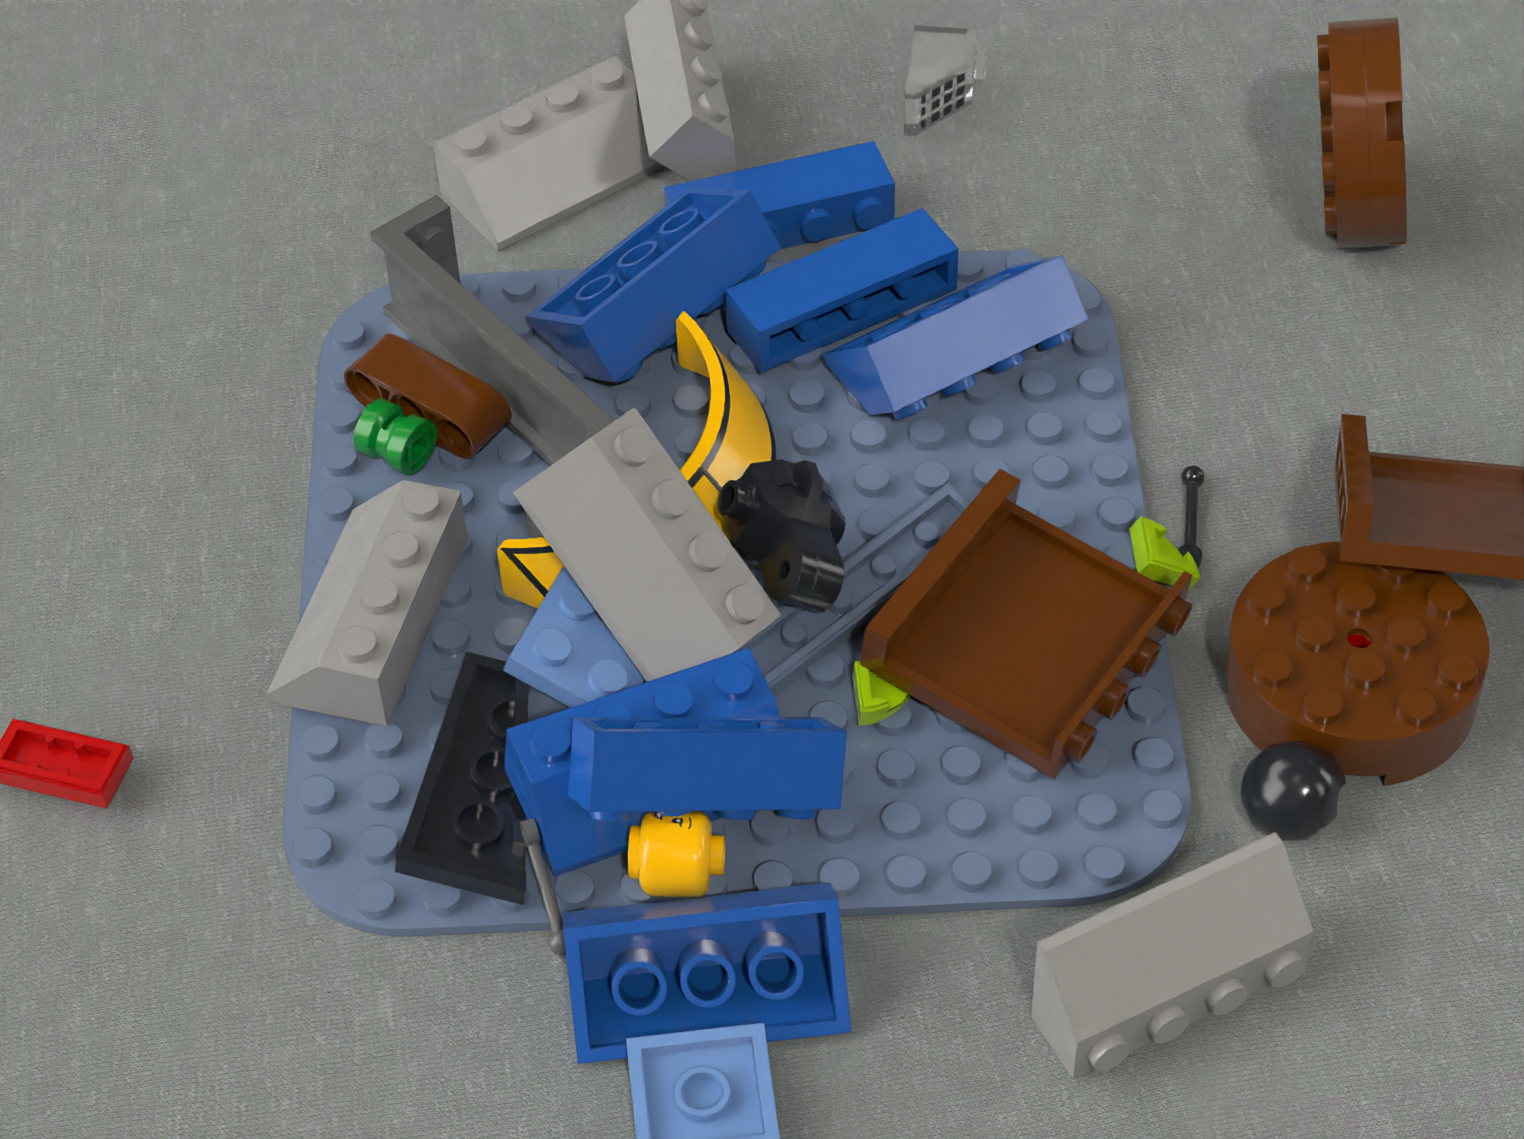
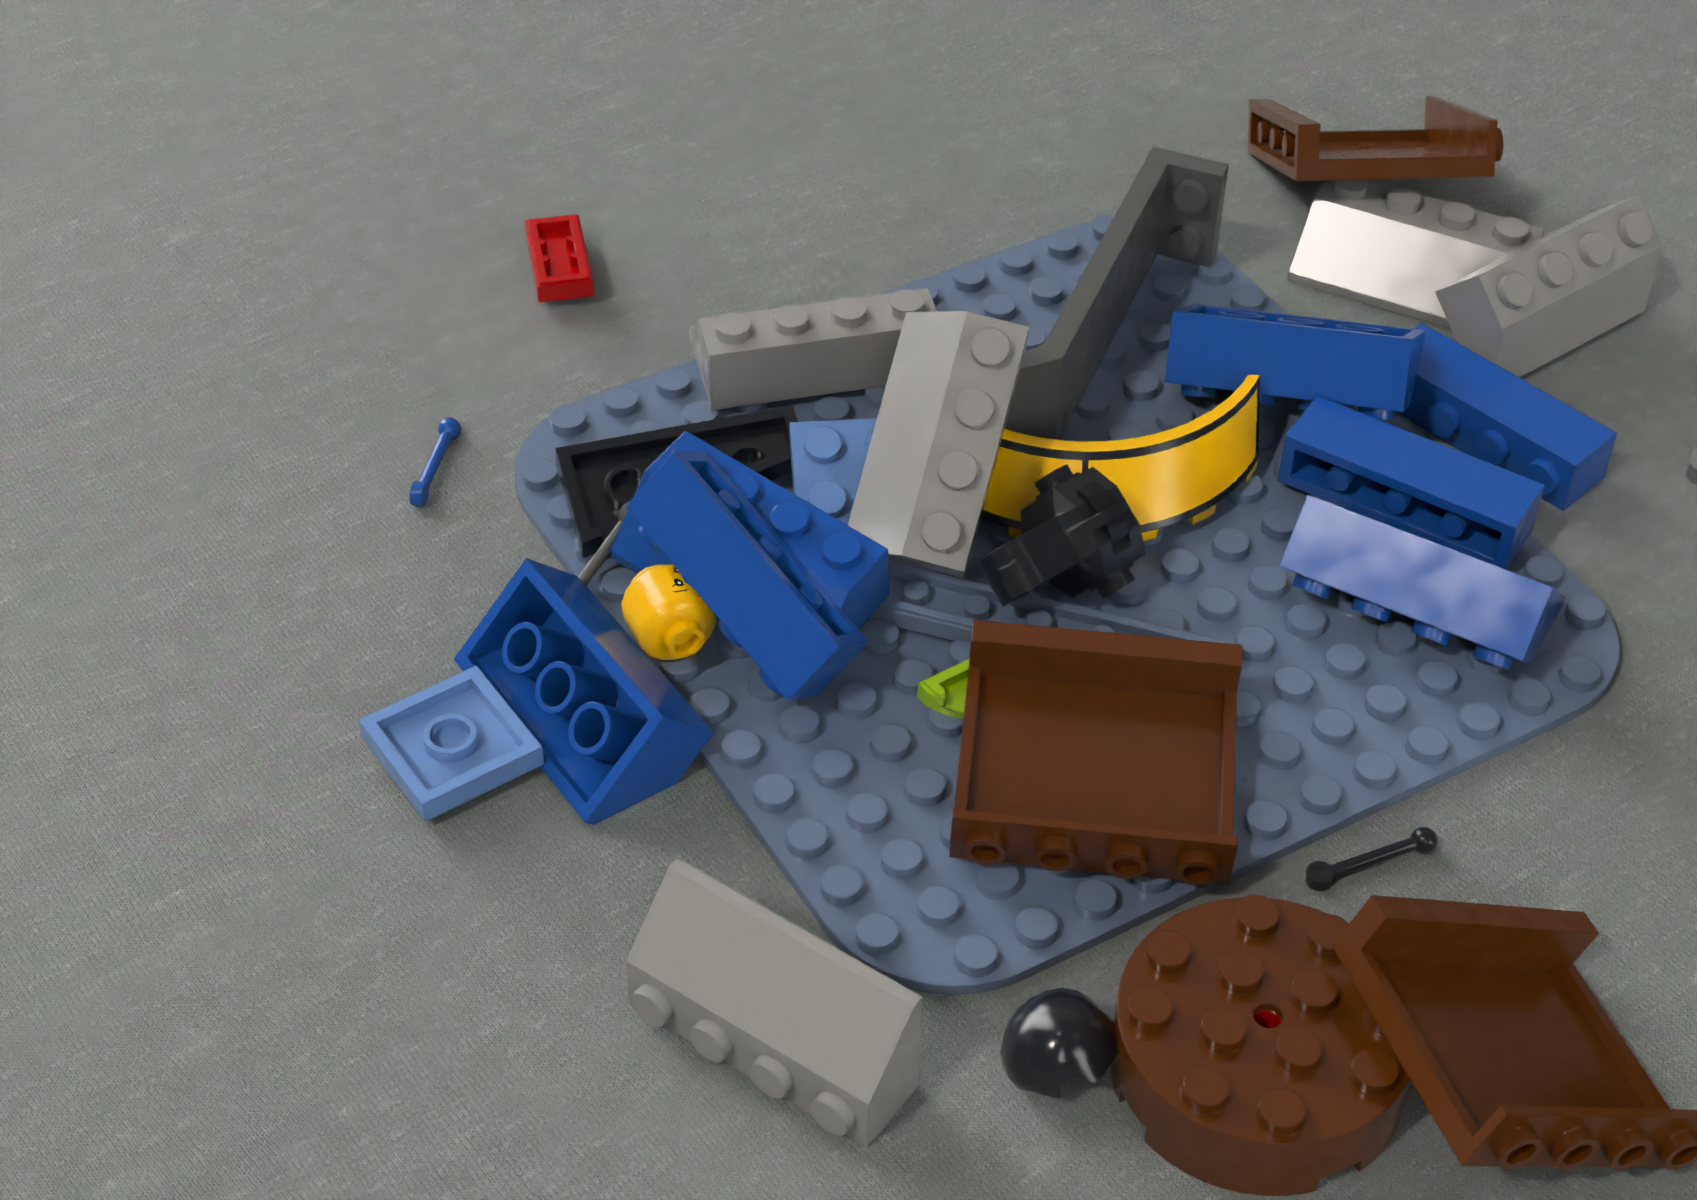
camera: 60 degrees right, 5 degrees down
(245, 954) = (449, 430): none -> blue hinge
(399, 438) = (998, 282): green wheel -> none
(422, 384) = (1056, 267): reddish brown beam -> none
(430, 104) = (1449, 146): none -> reddish brown panel
(1157, 556) = (1288, 844): lime tile -> none

